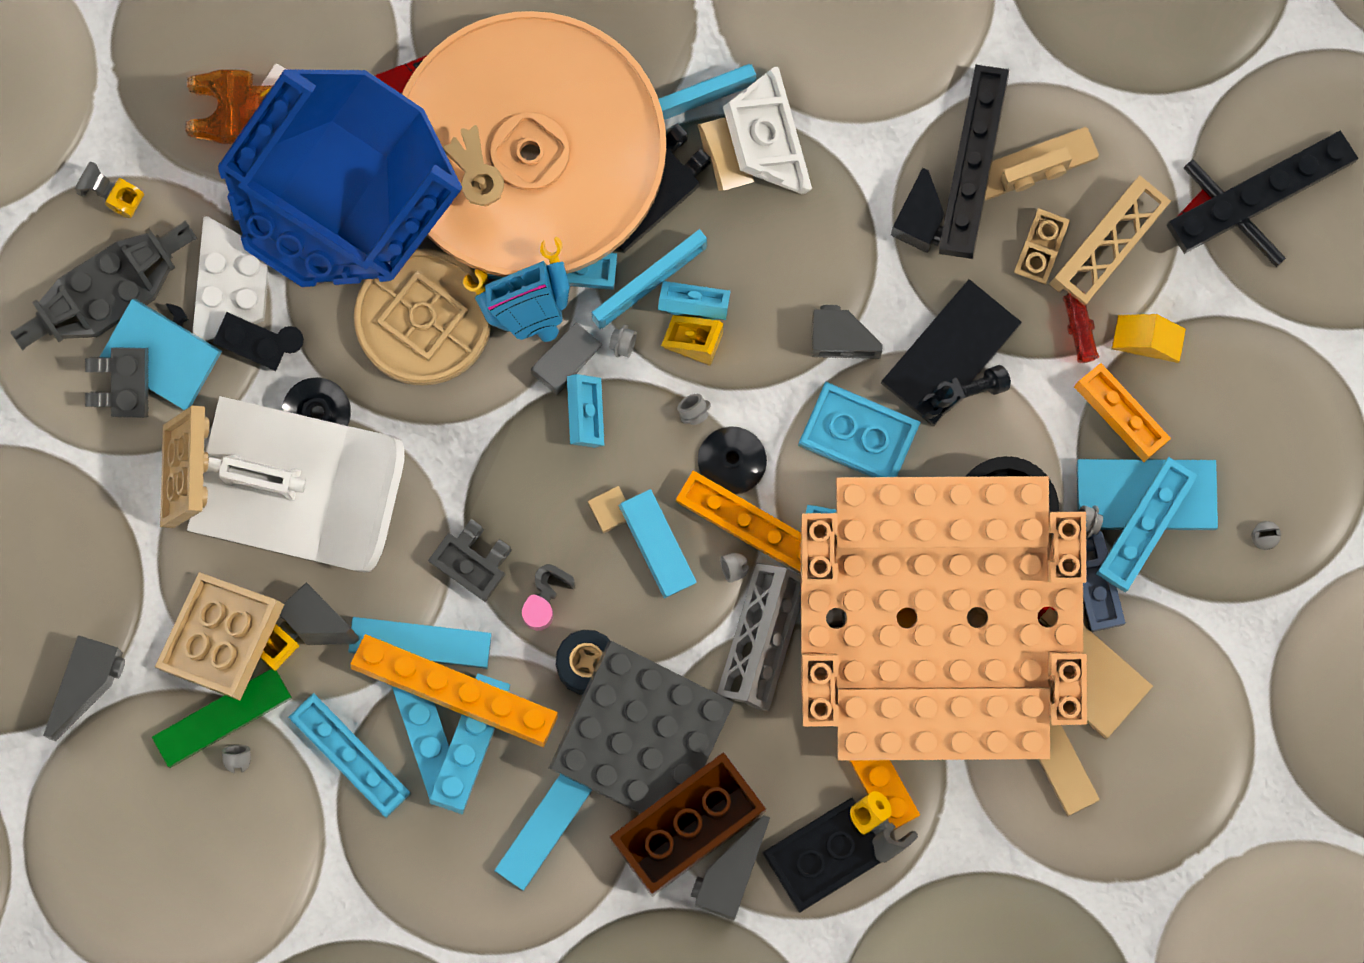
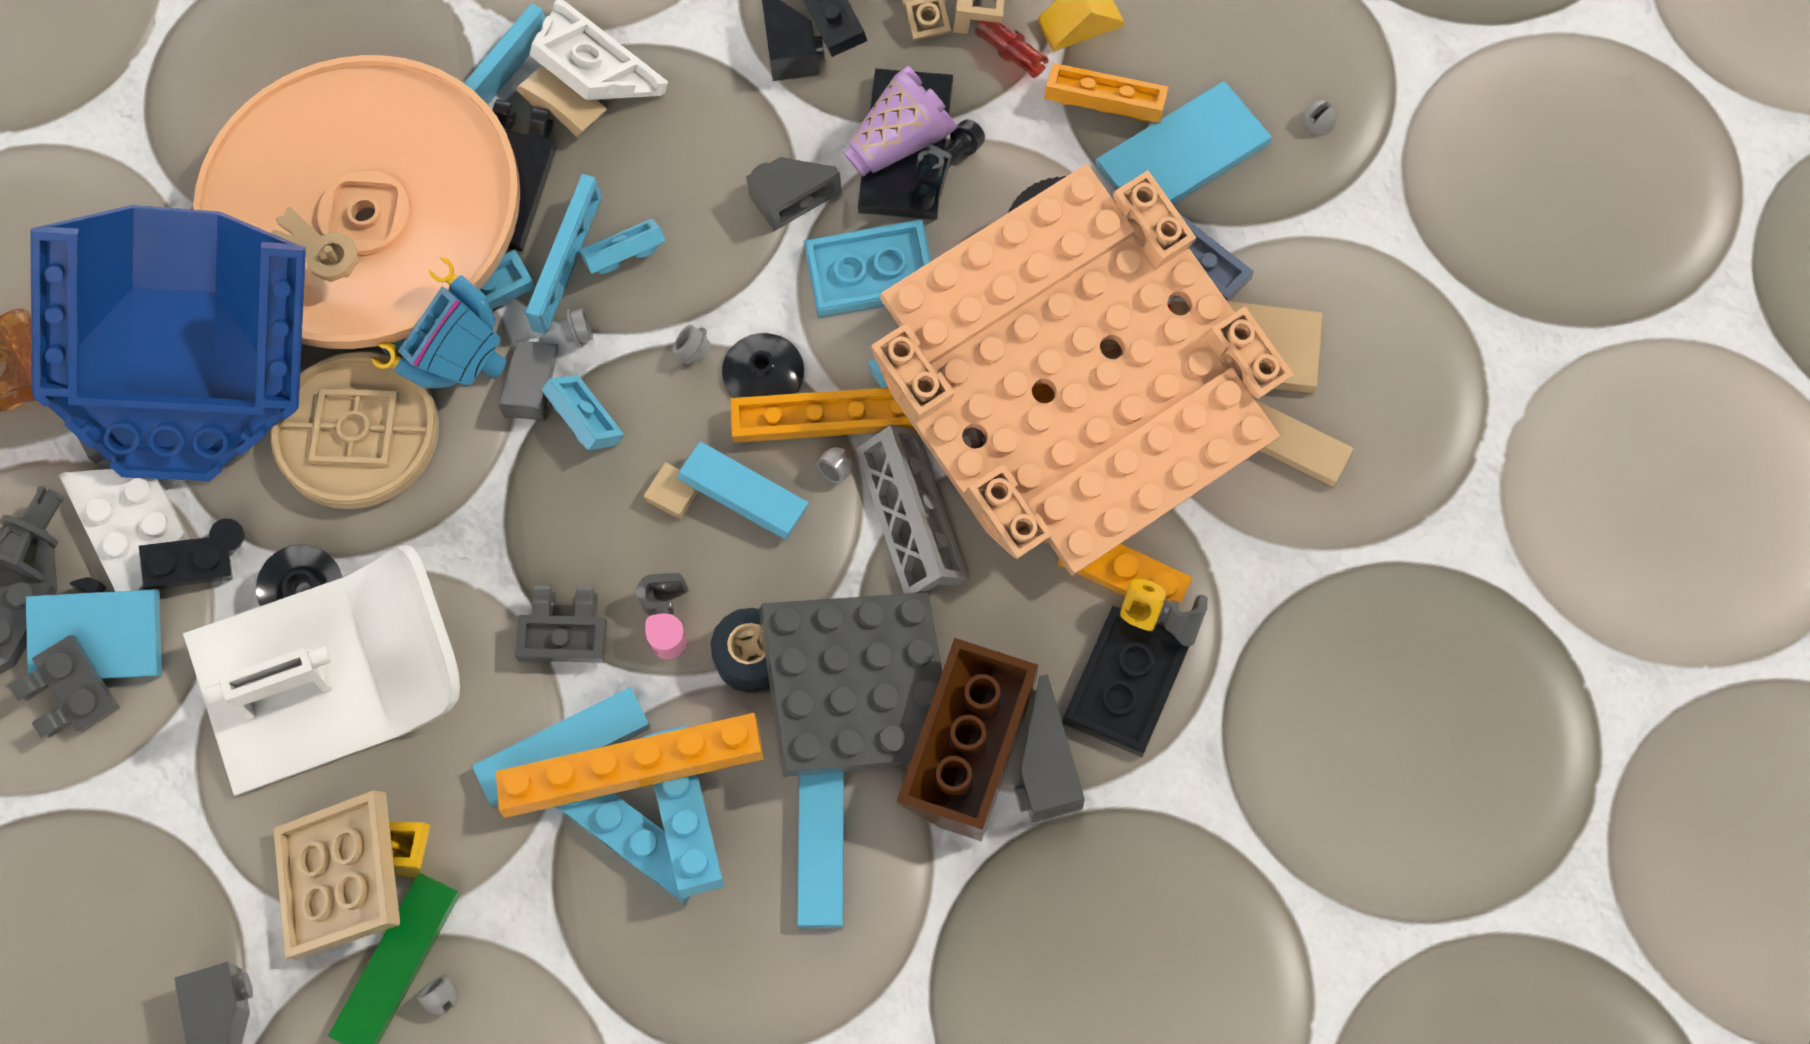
camera: 30 degrees left, 10 degrees down
(184, 467) = (184, 723): tan plate -> none
(314, 620) = (433, 791): dark grey slope -> none
(349, 755) = (561, 911): medium azure tile -> none
(693, 337) = (646, 278): yellow slope -> none
(948, 343) = (899, 124): none -> lavender cone
(1147, 524) = (1207, 169): medium azure plate -> none

